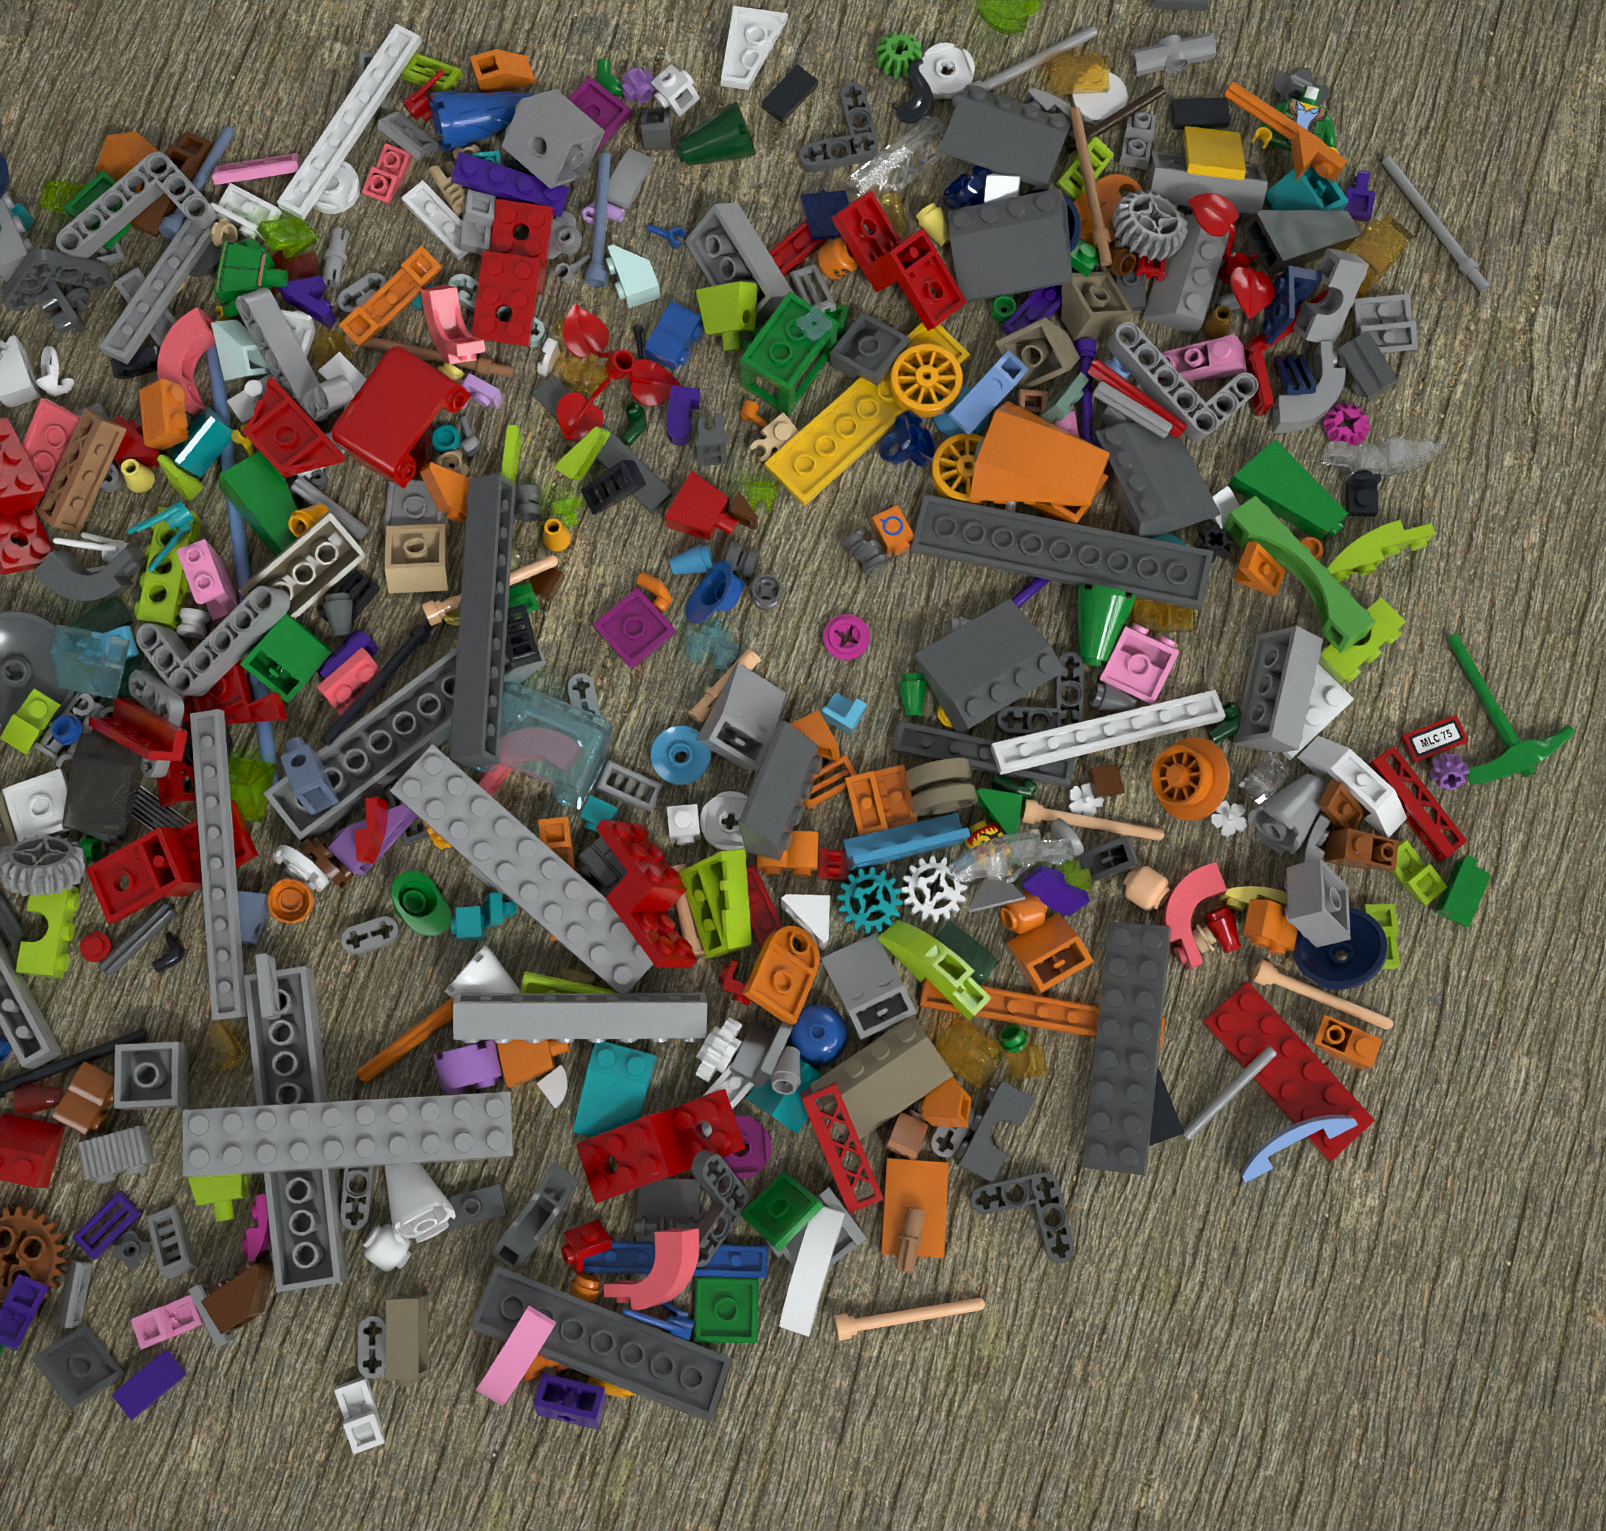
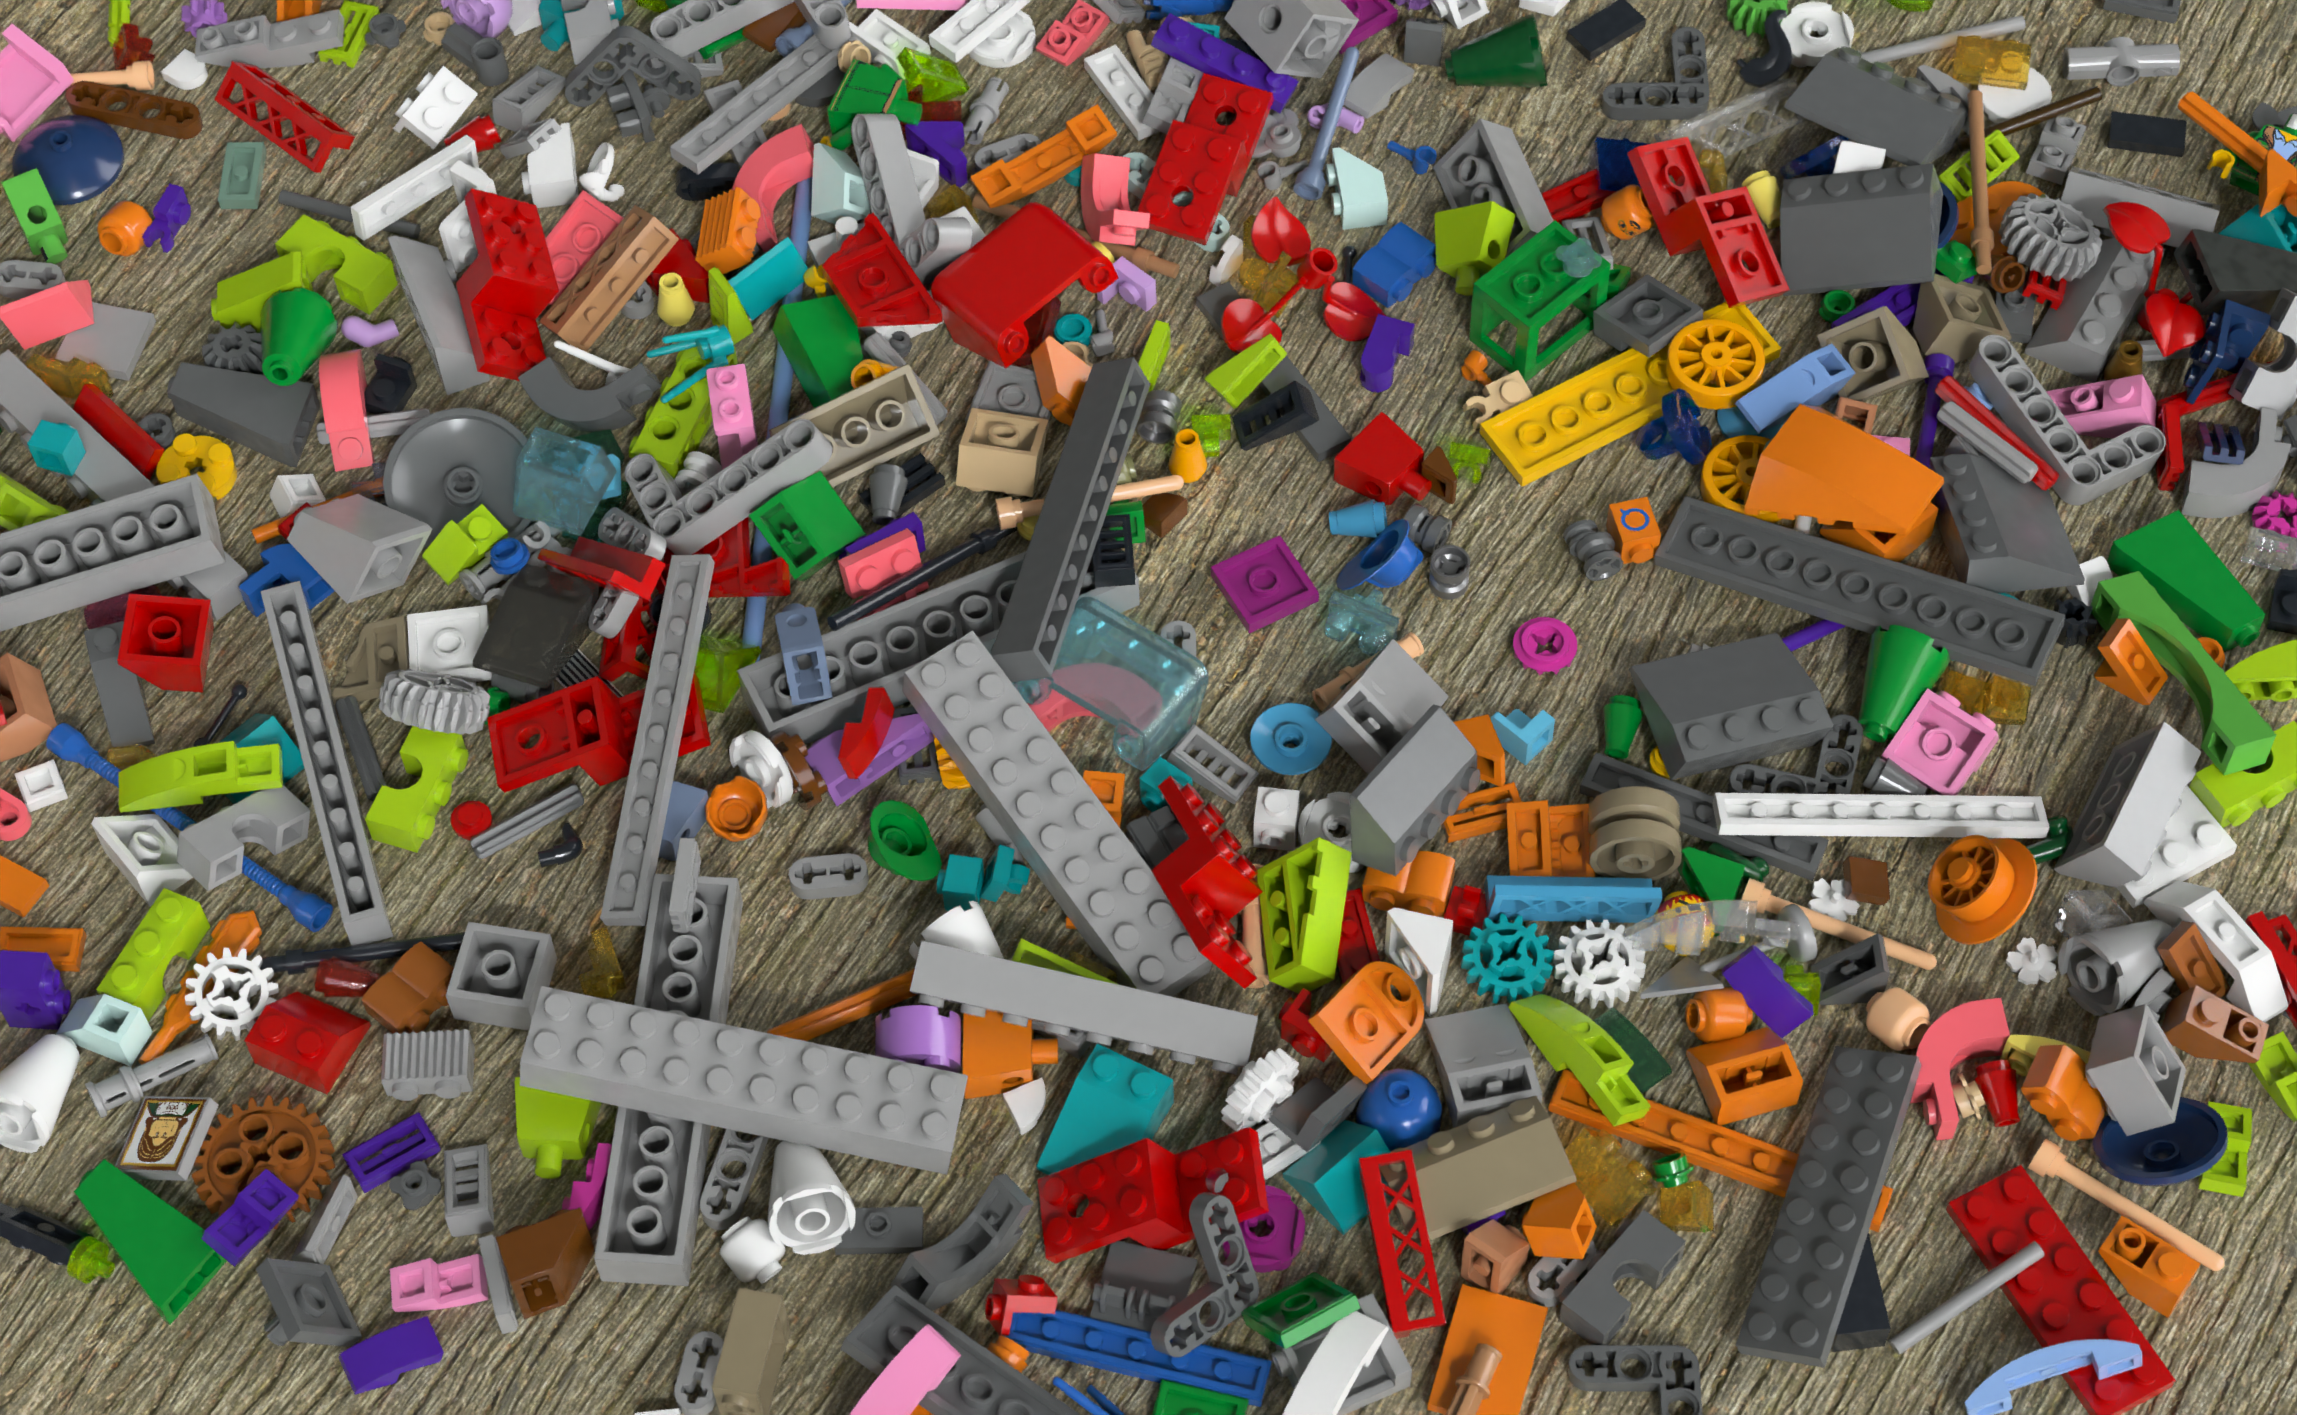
camera: 20 degrees right, 20 degrees down
(637, 423) = (1323, 354): dark green arm -> none
(658, 588) = (1306, 542): orange arm -> none
(673, 1268) = (1125, 1349): coral arch -> none
(712, 443) = (1415, 385): dark grey hinge -> none
(786, 1074) = (1346, 1131): light grey cone -> none
(1067, 395) = (1906, 412): sand green plate -> none
(1214, 153) = (2153, 173): yellow tile -> none

